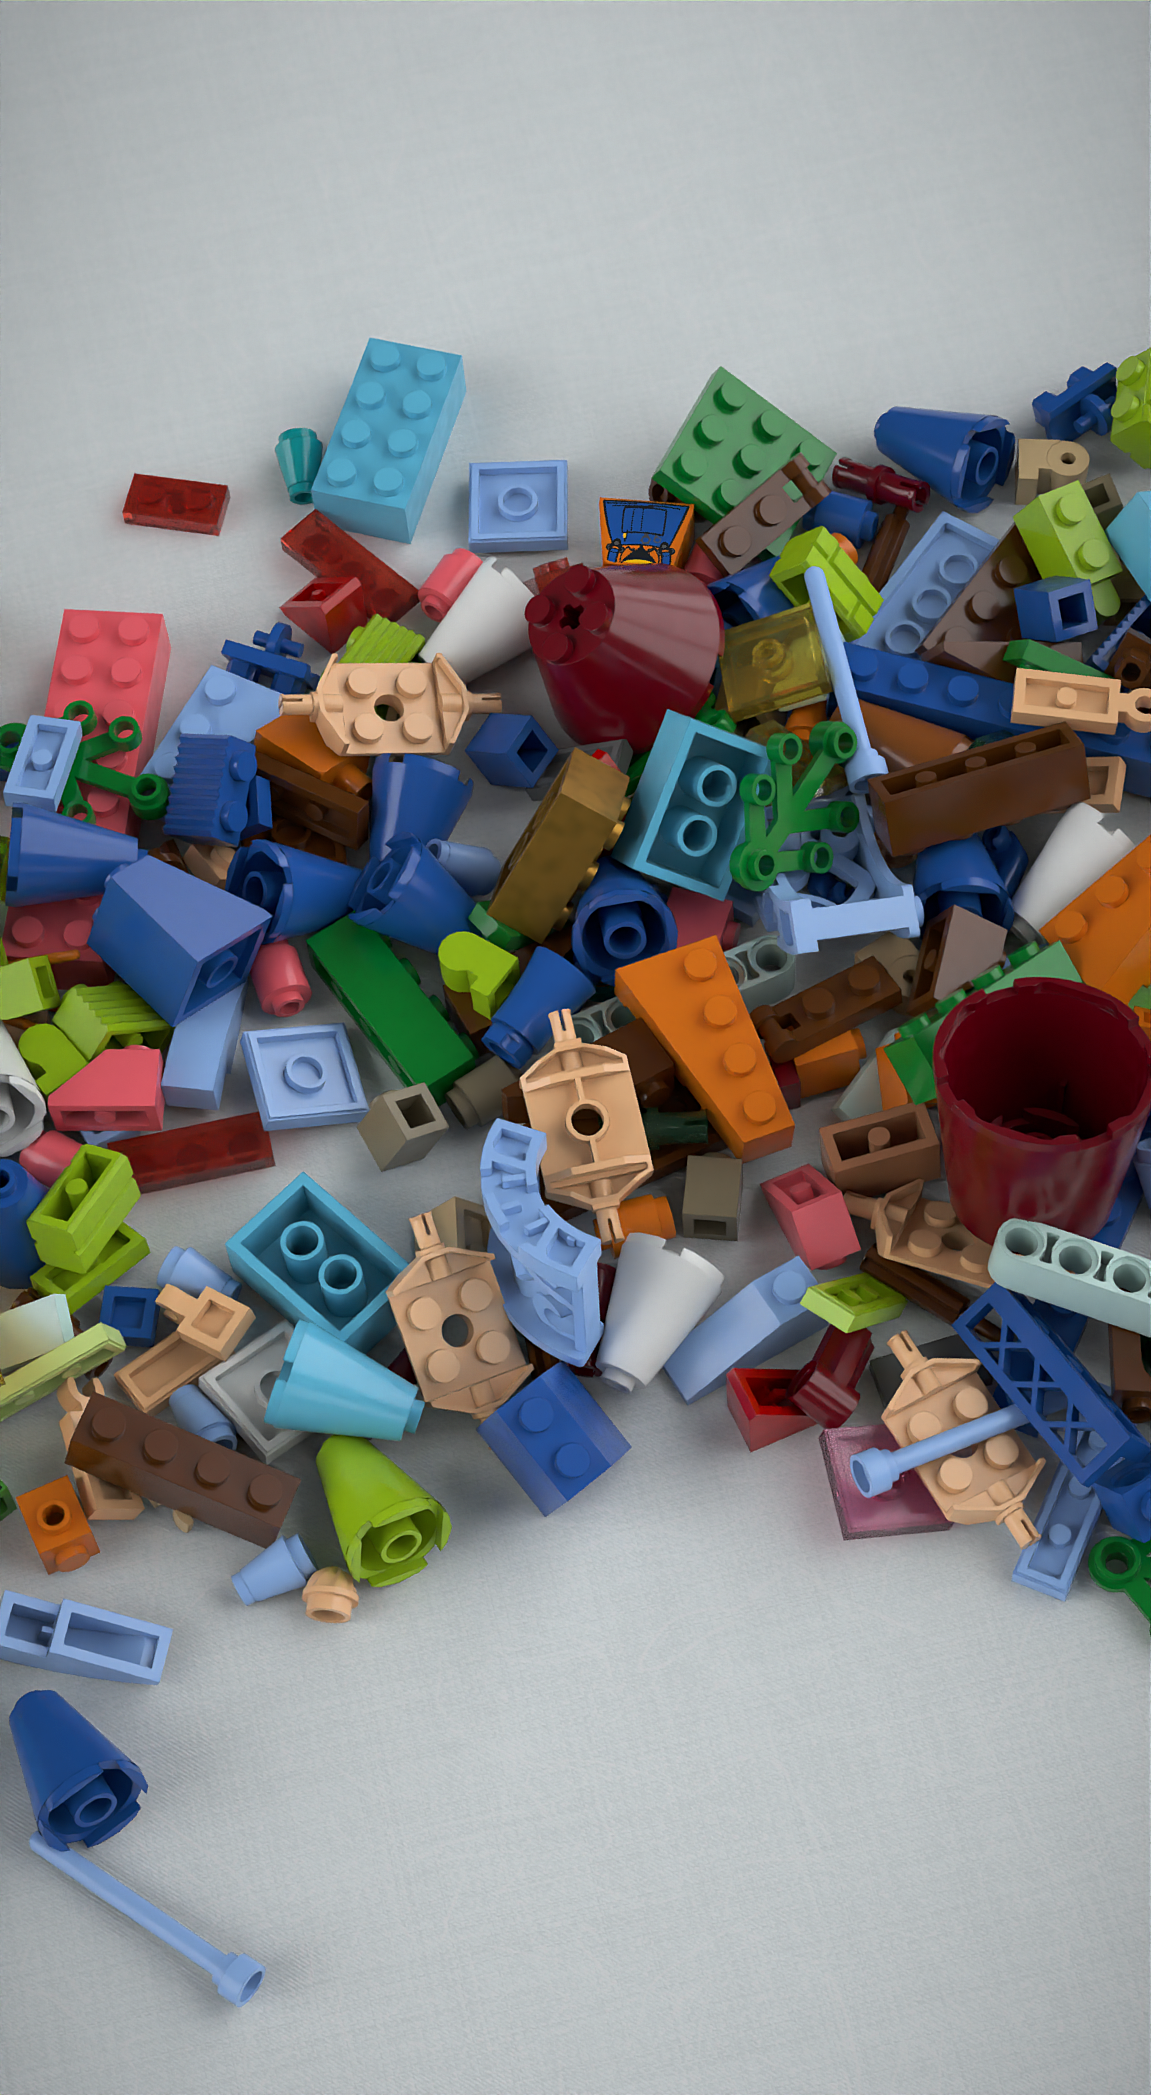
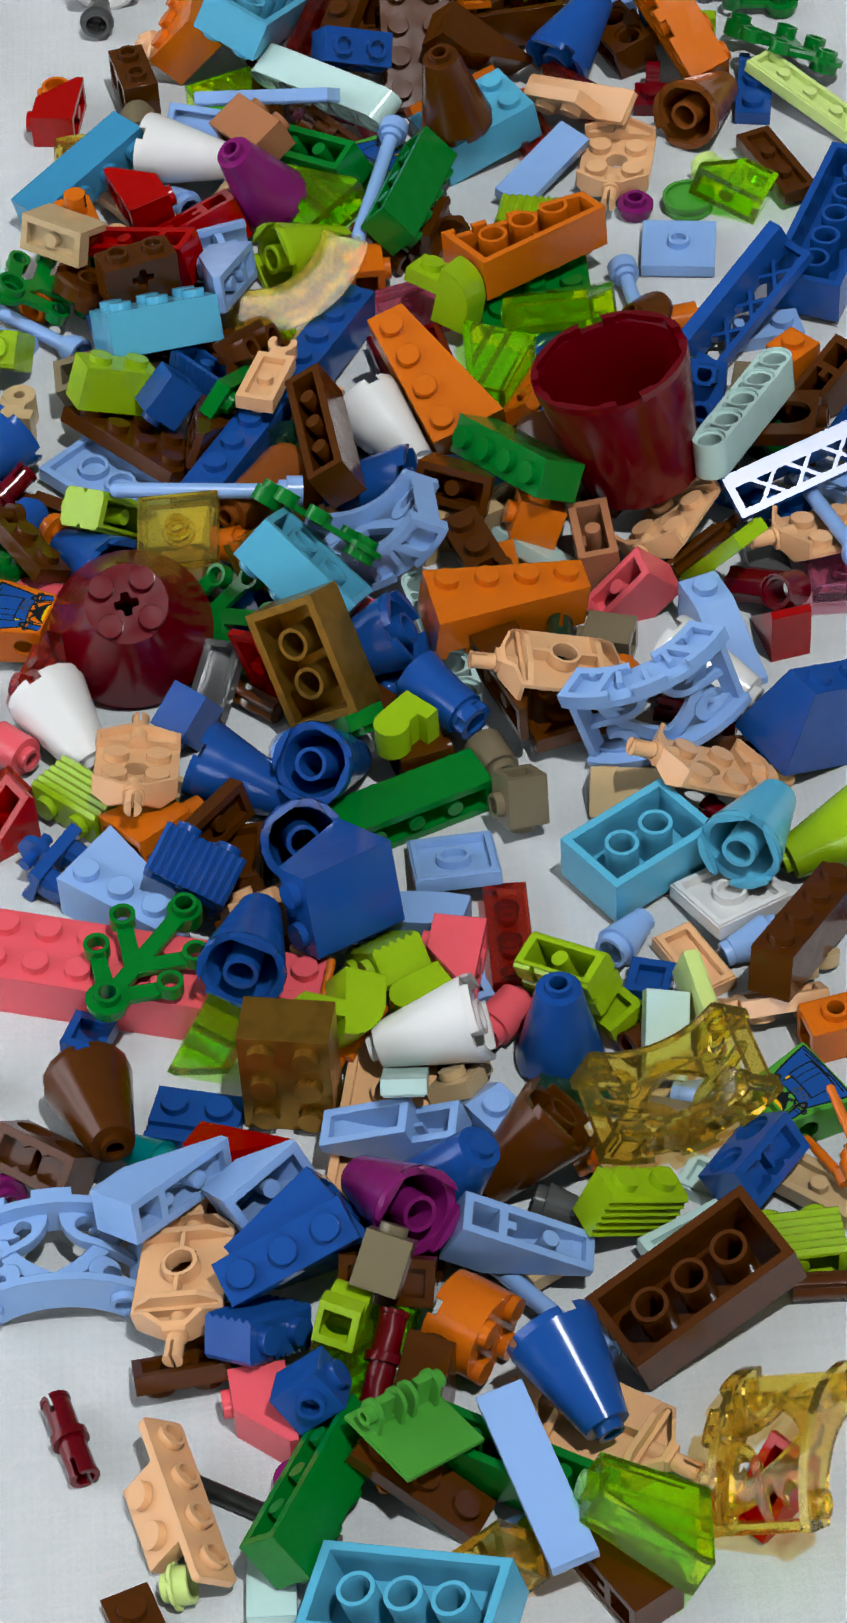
camera: 85 degrees left, 15 degrees down
(43, 762) = (147, 958): light blue plate -> none
(210, 1322) = (670, 915): light nougat plate -> none

